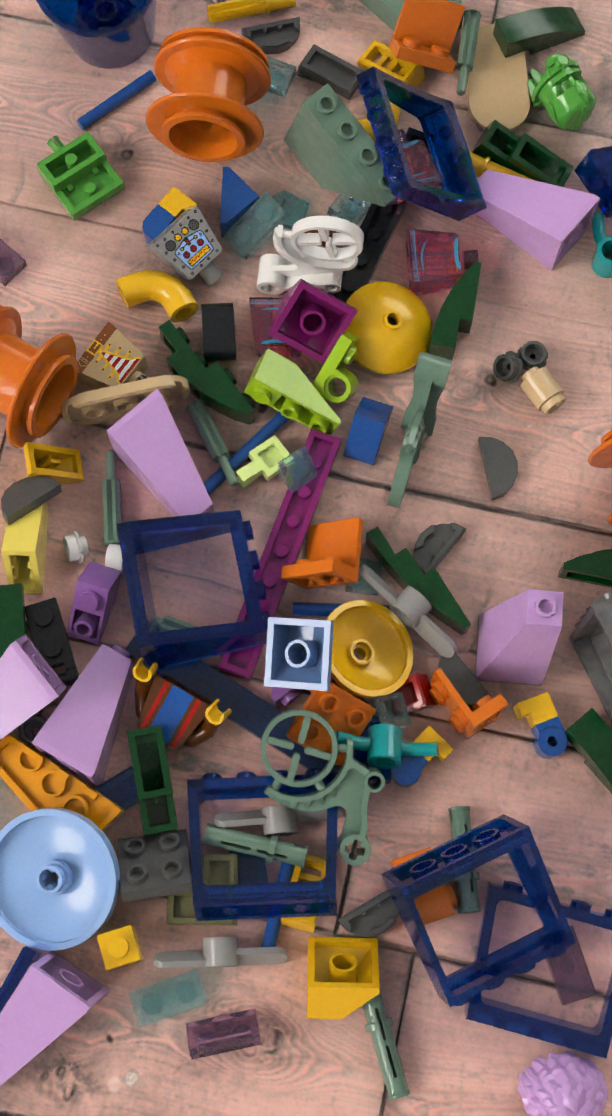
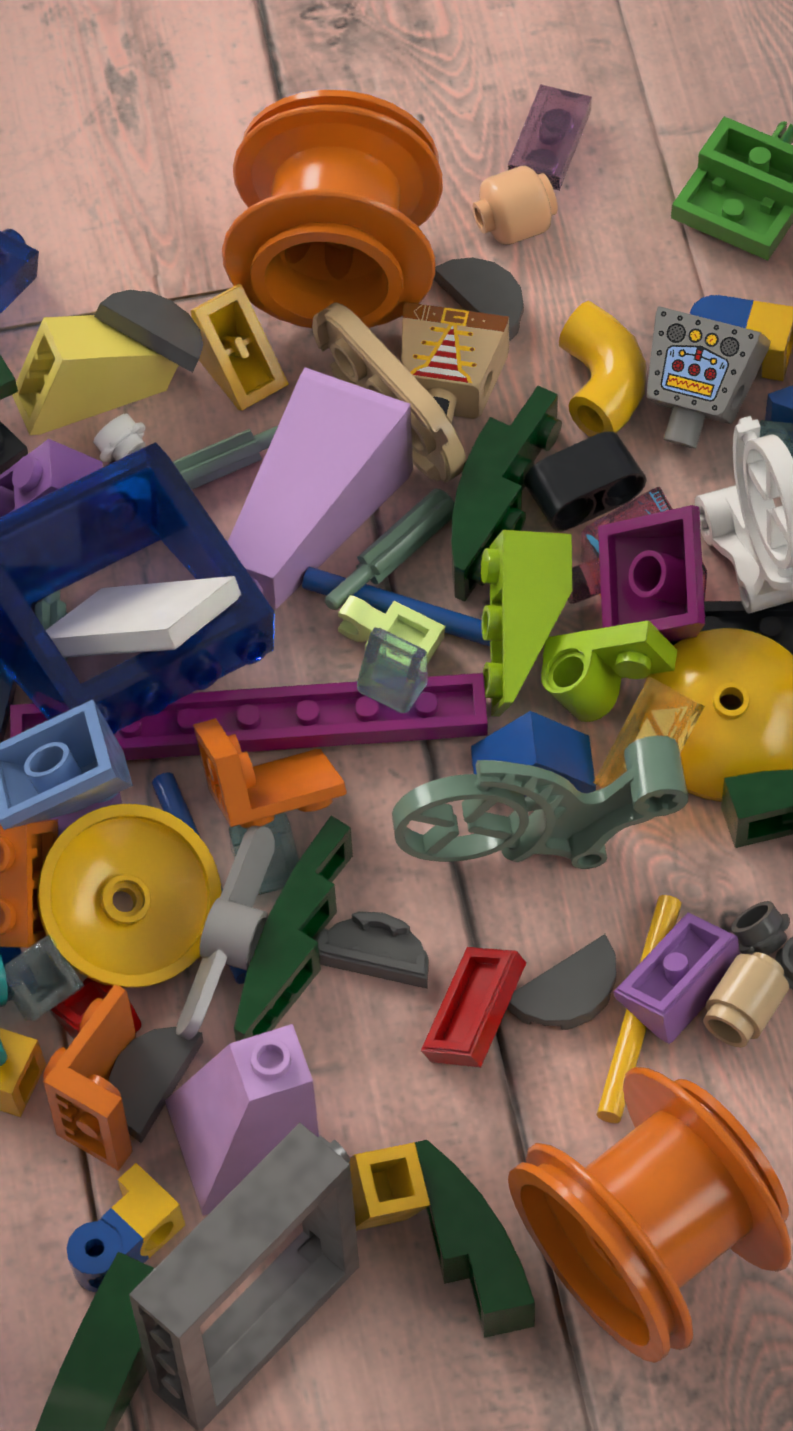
camera: 70 degrees right, 15 degrees down
(29, 289) = (515, 205): none -> light nougat head
(79, 324) = (483, 288): none -> dark grey tile
(210, 577) = (142, 617): none -> white tile
(390, 369) = (656, 712): none -> clear yellow tile
(491, 513) = (473, 1006): none -> red tile
(516, 413) = (678, 976): none -> medium lavender slope
(521, 439) = (633, 1030): none -> yellow bar
(579, 591) = (387, 1186): none -> yellow brick

